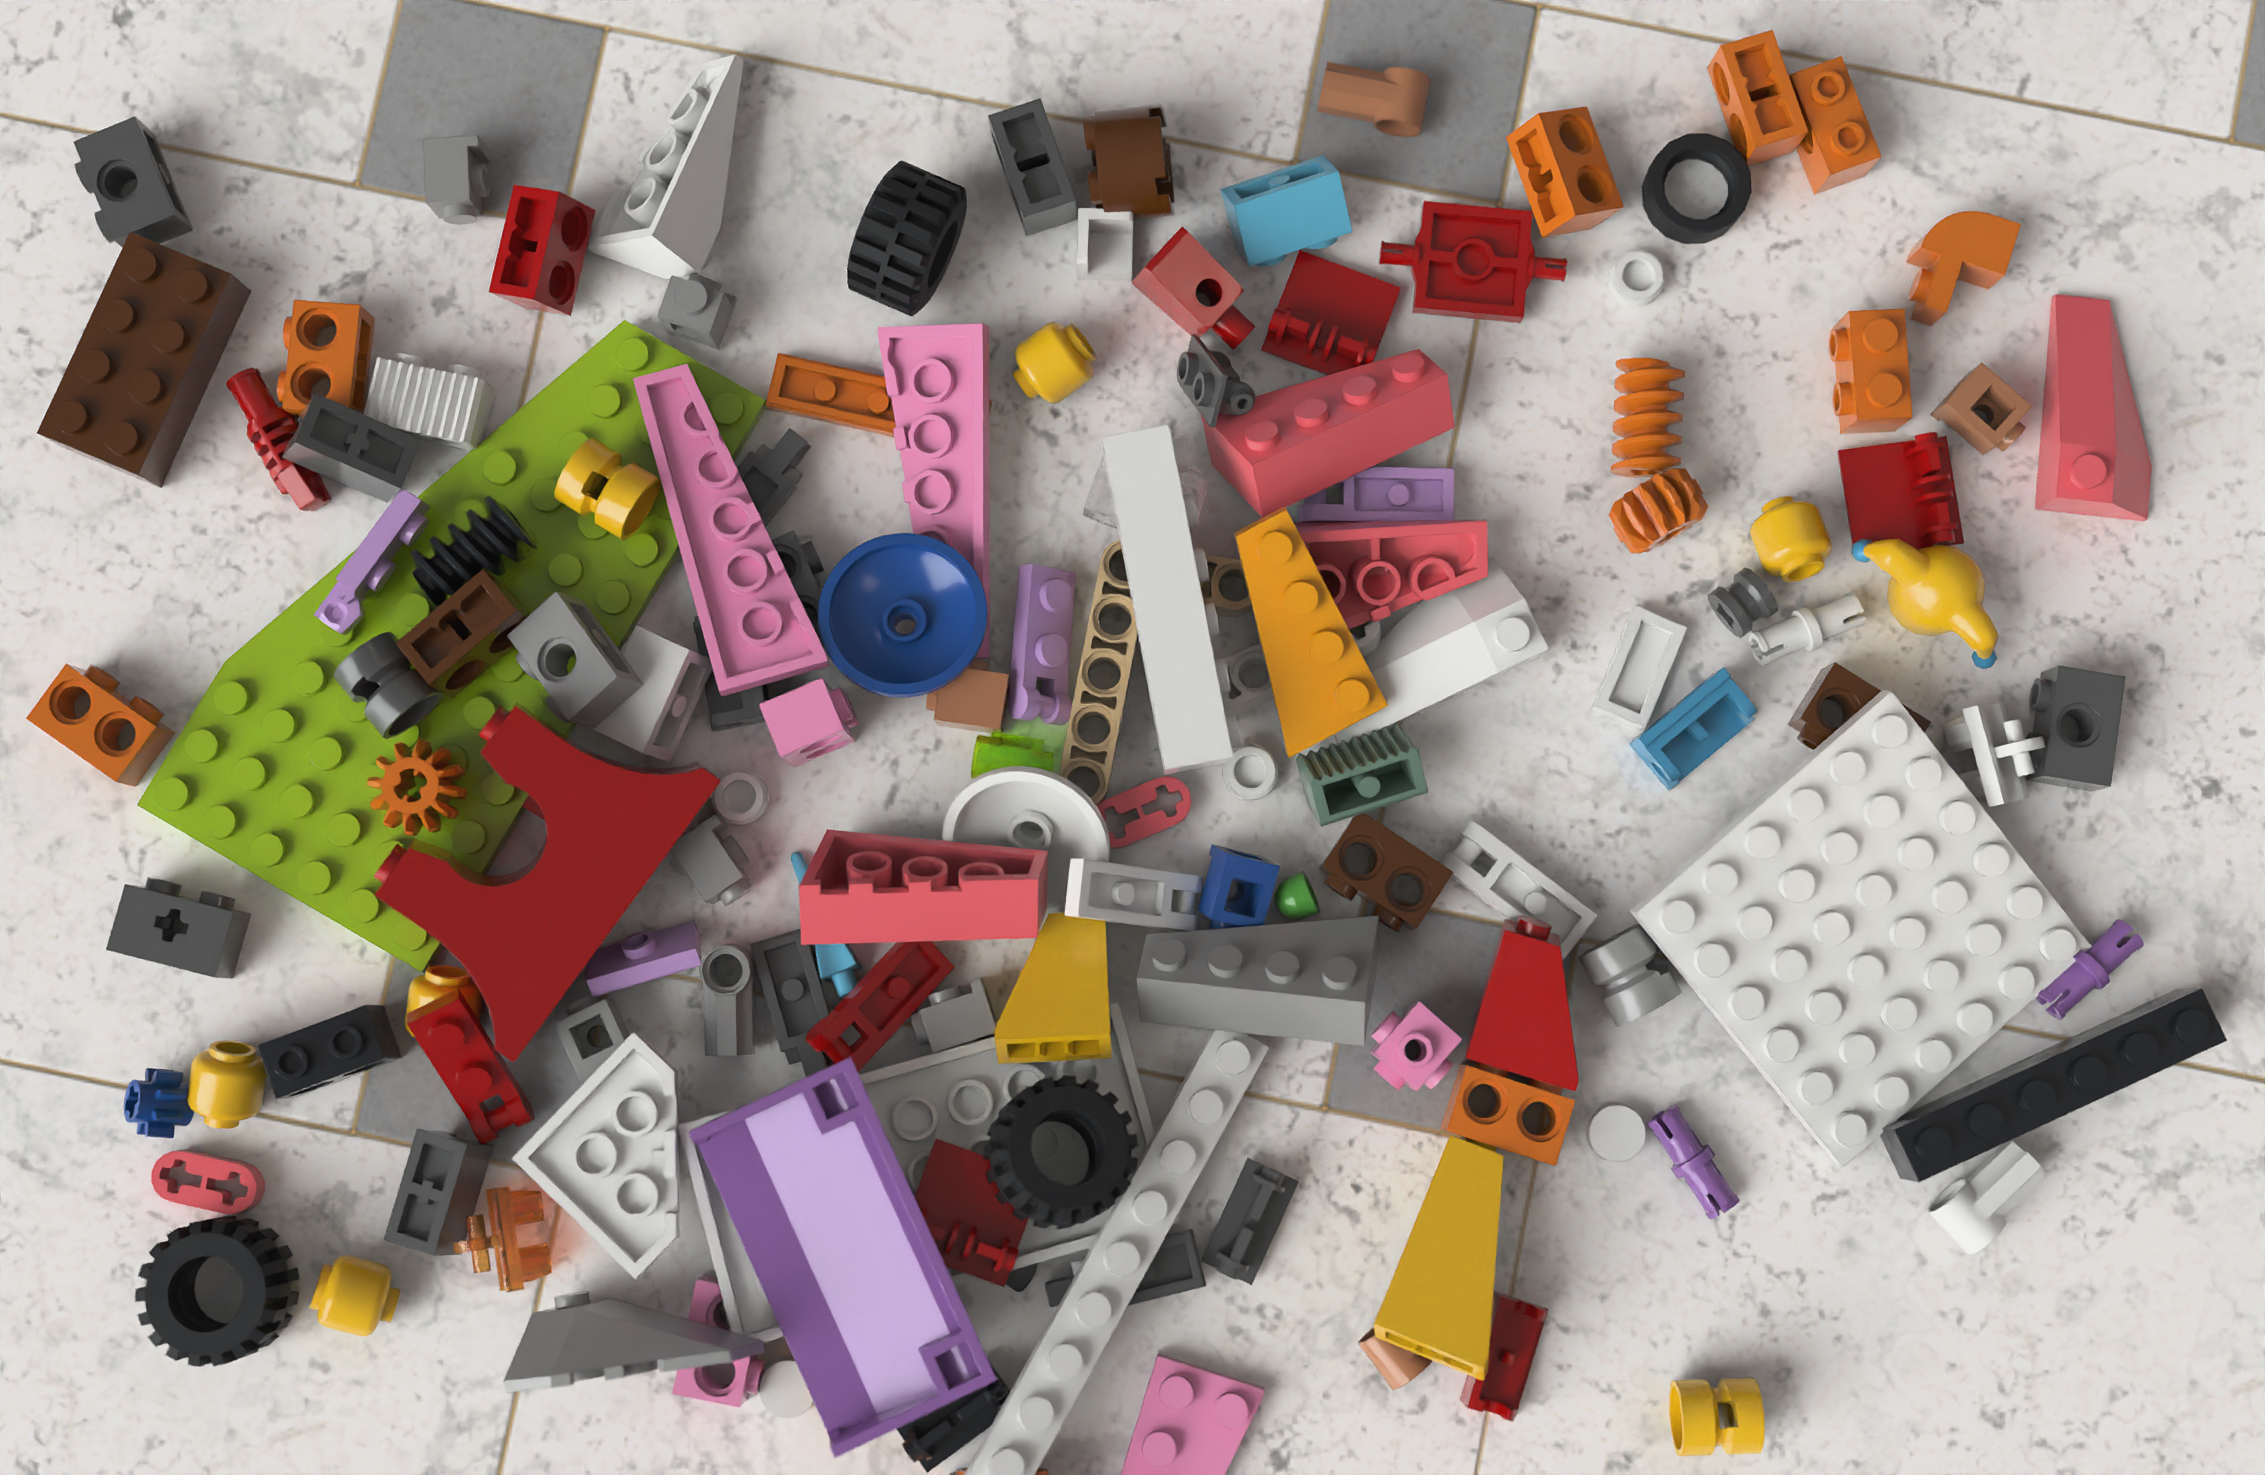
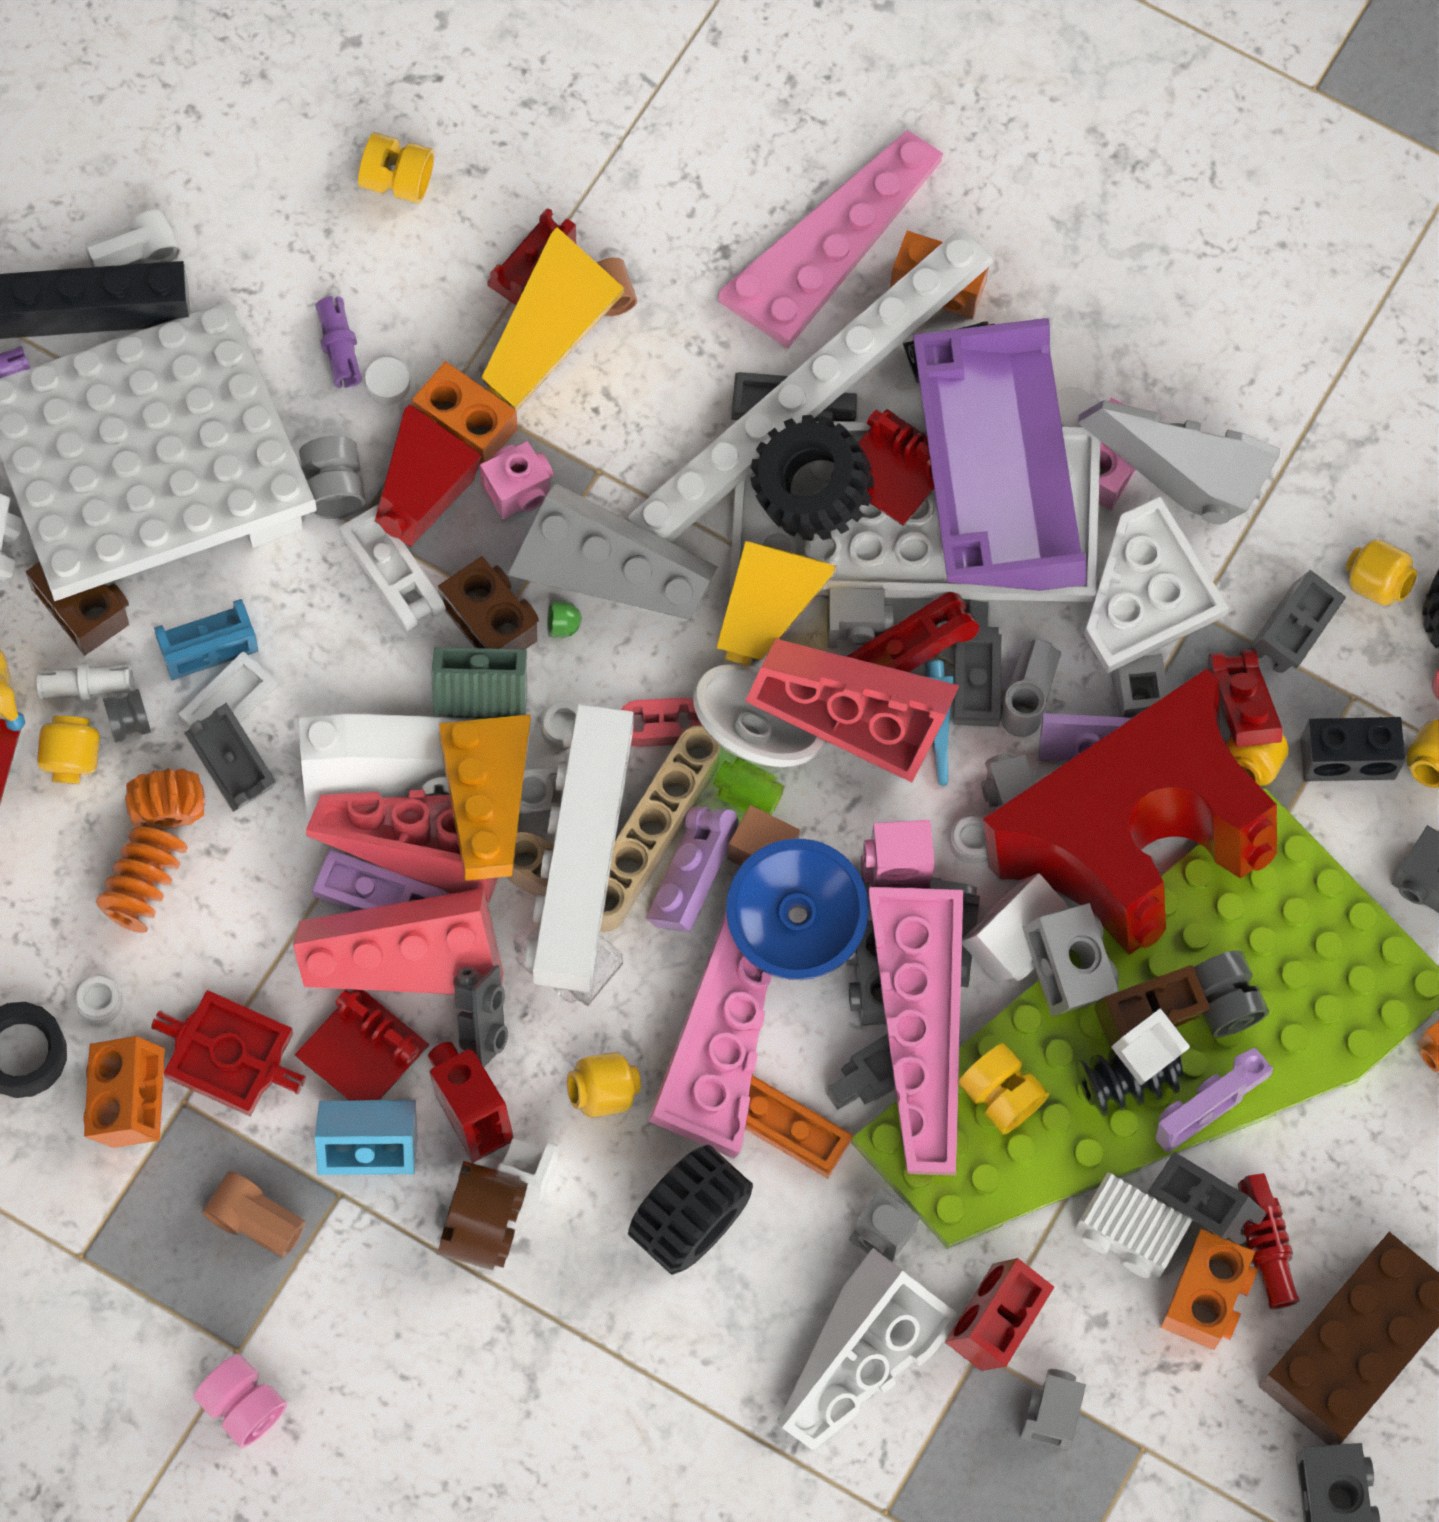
camera: 165 degrees left, 15 degrees down
(400, 779) = (1217, 925): orange gear -> none
(449, 563) = (1150, 1046): none -> white panel
(512, 1263) = (1253, 558): clear orange hips -> none
(1033, 167) = (563, 1244): dark grey brick -> none
(1132, 895) = (690, 648): white plate -> none
(1249, 1221) = (687, 408): dark grey hinge -> none
(1255, 884) = (606, 637): blue brick -> none
(1605, 590) = (230, 757): none -> dark grey hinge

